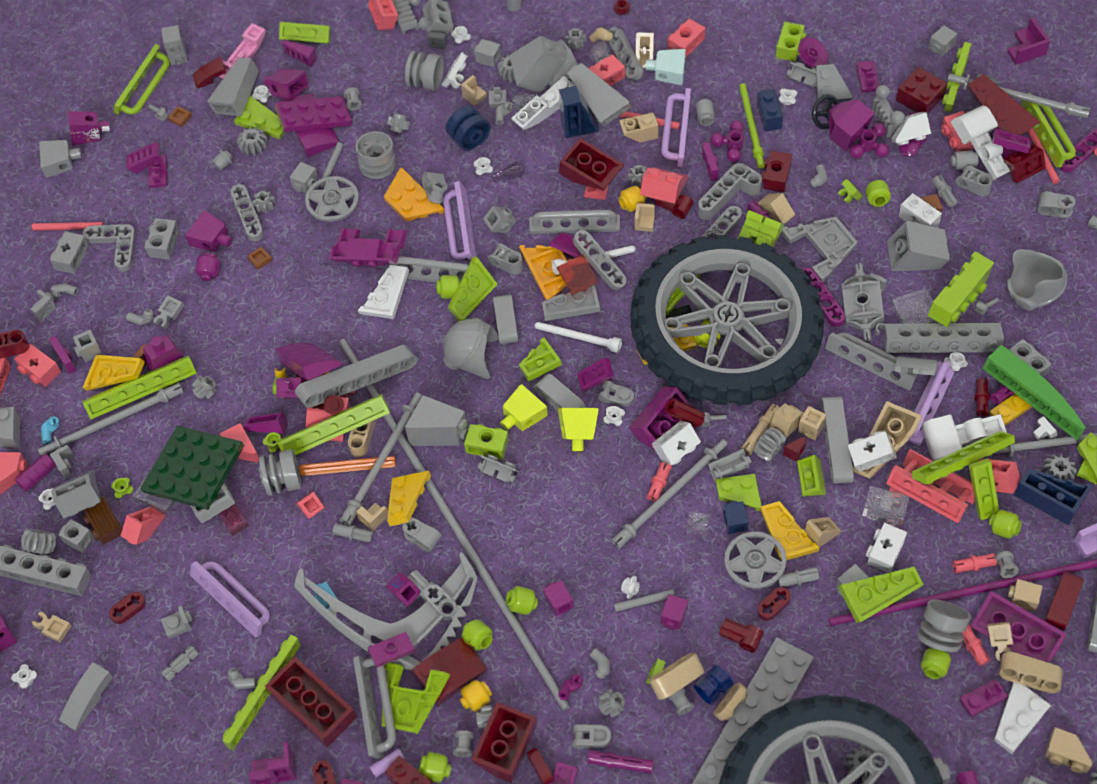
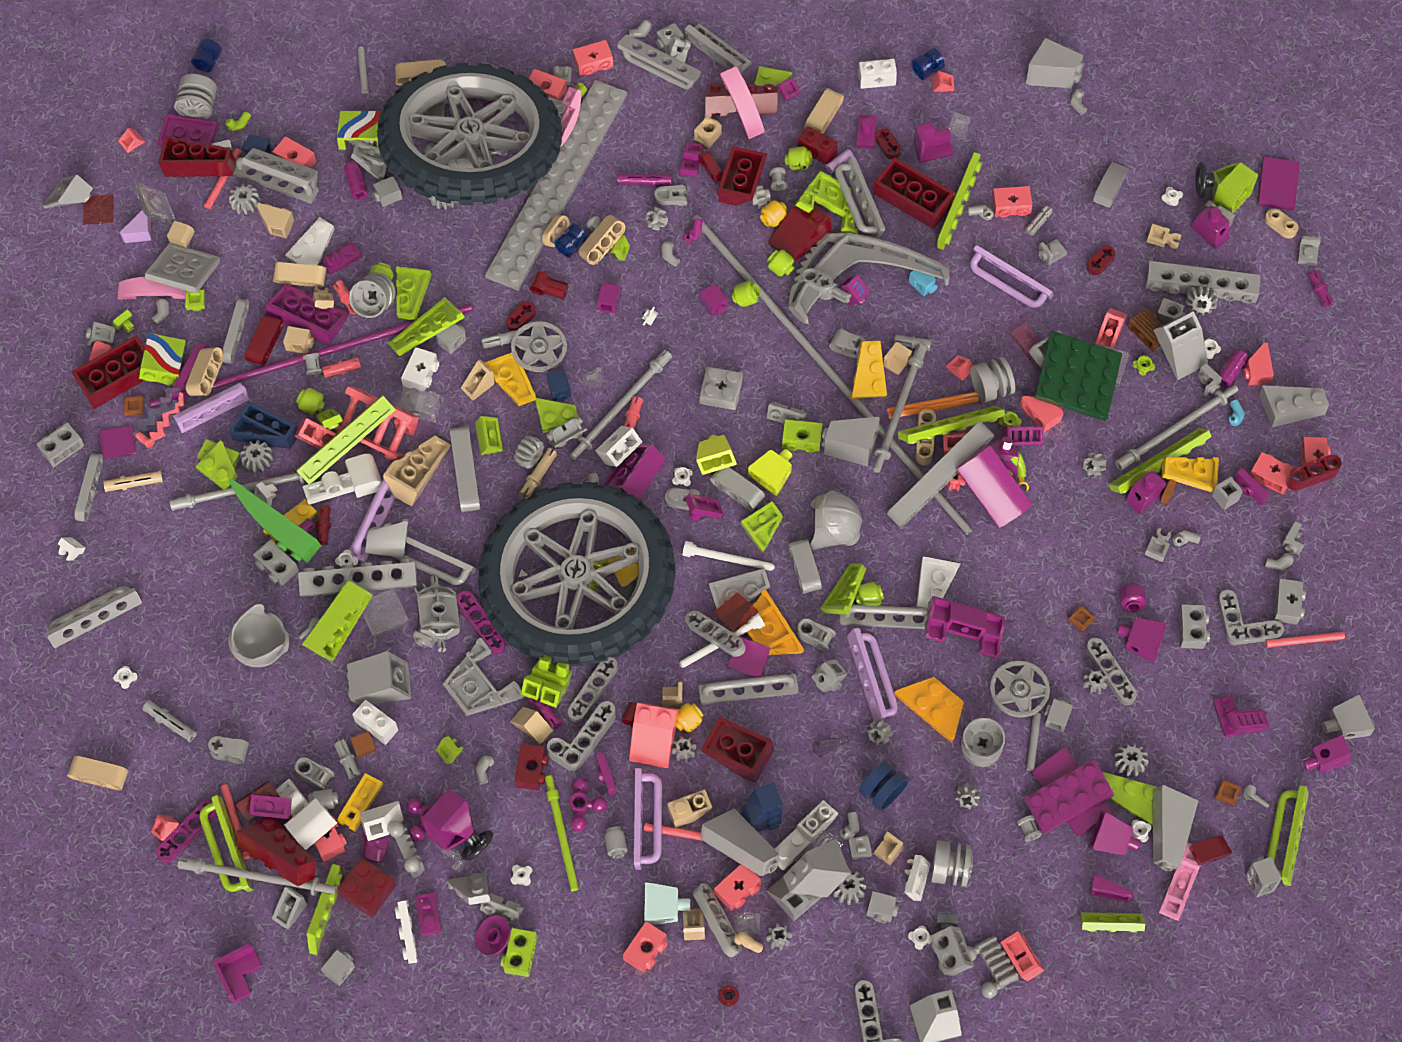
camera: 170 degrees right, 5 degrees up
(210, 690) = (1012, 201): none -> coral brick
(222, 160) = (1158, 732): light grey hose -> none
(333, 404) = (955, 435): dark red tile -> none
(391, 649) = (852, 234): magenta plate -> none
(434, 186) = (909, 717): light grey piece -> none
(463, 174) = (879, 732): none -> light grey gear
(483, 162) = (863, 746): white plate -> none
(570, 509) = (728, 396): none -> light grey brick
(643, 600) = (636, 310): light grey bar -> none
(684, 412) = (612, 470): dark red axle -> none
(769, 110) = (541, 847): dark blue brick -> none
(786, 419) = (511, 479): tan arch -> none
(795, 449) = (504, 454): dark red slope -> none
(811, 423) = (489, 476): tan brick -> none
(878, 193) = (419, 747): lime head -> none
(882, 451) = (431, 447): white brick -> none
(886, 59) = (405, 931): none -> white wing
(899, 644) = (410, 291): none -> lime wing
(930, 158) = (360, 801): none -> yellow plate

